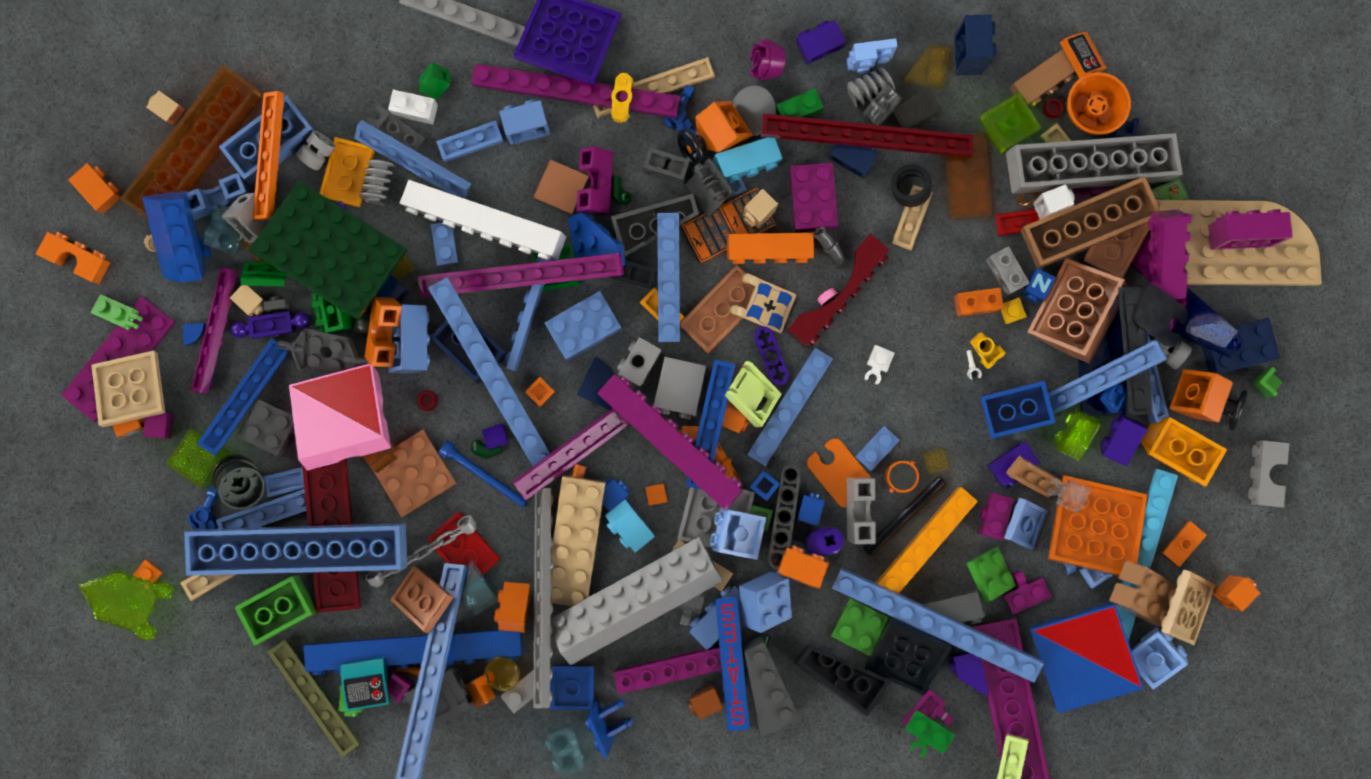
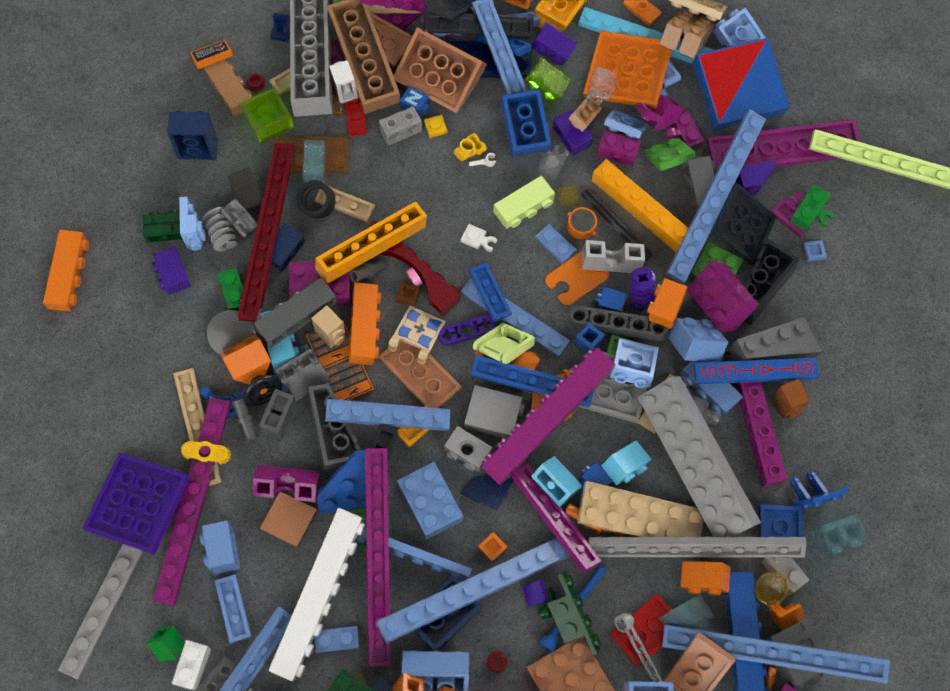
camera: 95 degrees left, 15 degrees down
(470, 472) = (570, 615): none -> dark green bracket
(608, 454) = (556, 481): none -> medium azure brick
(618, 193) = (300, 463): dark green arm -> none
(656, 494) = (594, 441): orange piece -> none
(660, 133) = (244, 419): none -> dark grey pin
(767, 60) = (183, 317): magenta cone -> none
(770, 172) = (295, 312): none -> dark grey brick
(807, 291) = (408, 294): none -> reddish brown plate
(813, 378) = (490, 292): none -> blue tile
(816, 629) = (722, 296): none -> magenta brick
(855, 246) = (370, 242): none -> light orange brick
(870, 23) = (161, 226): none -> dark green brick
(885, 737) = (814, 250): none -> medium blue tile
(922, 412) = (524, 202): none -> yellowish green brick
(930, 68) = (207, 179): clear yellow wing -> none
(952, 179) = (314, 160): none -> clear light blue brick
(970, 442) = (552, 164): none -> clear brick
(978, 302) = (427, 150): orange brick -> none
(1039, 567) = (663, 116): none -> magenta brick
(1107, 98) = (257, 42): orange piece -> none

